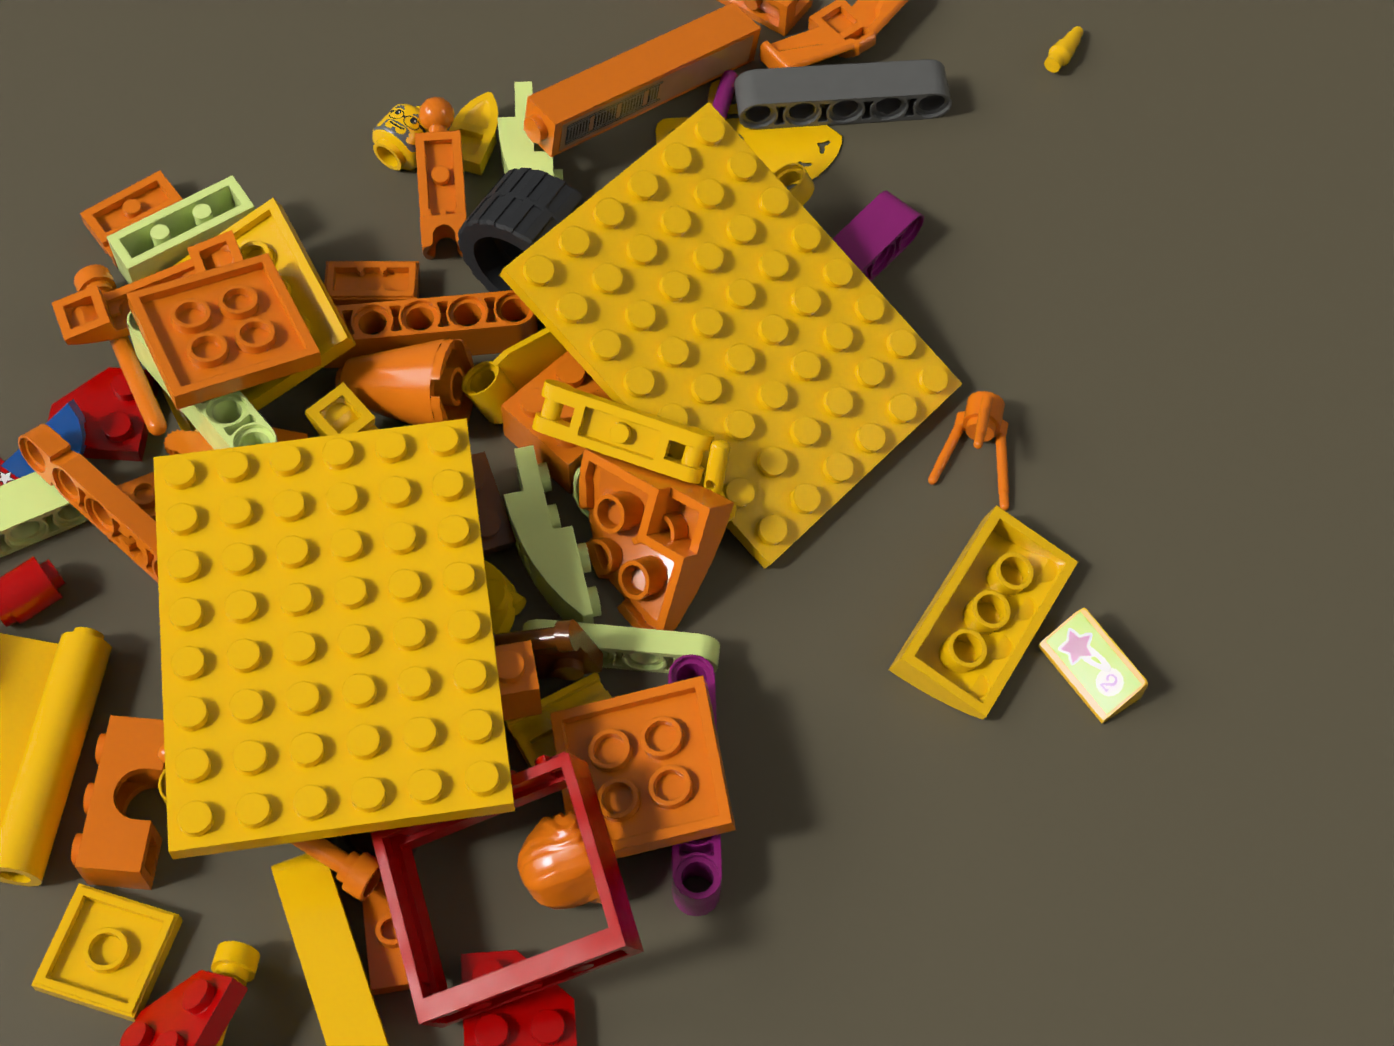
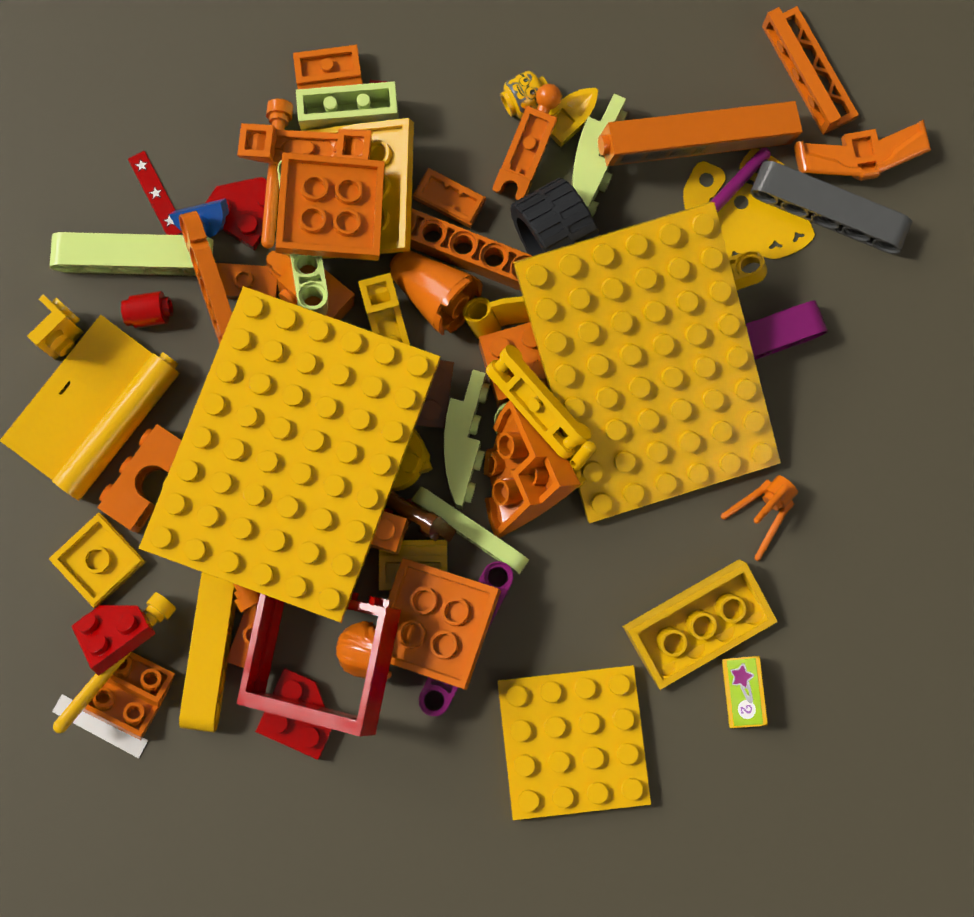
camera: 30 degrees right, 20 degrees up
(915, 847) = (573, 742): none -> yellow plate

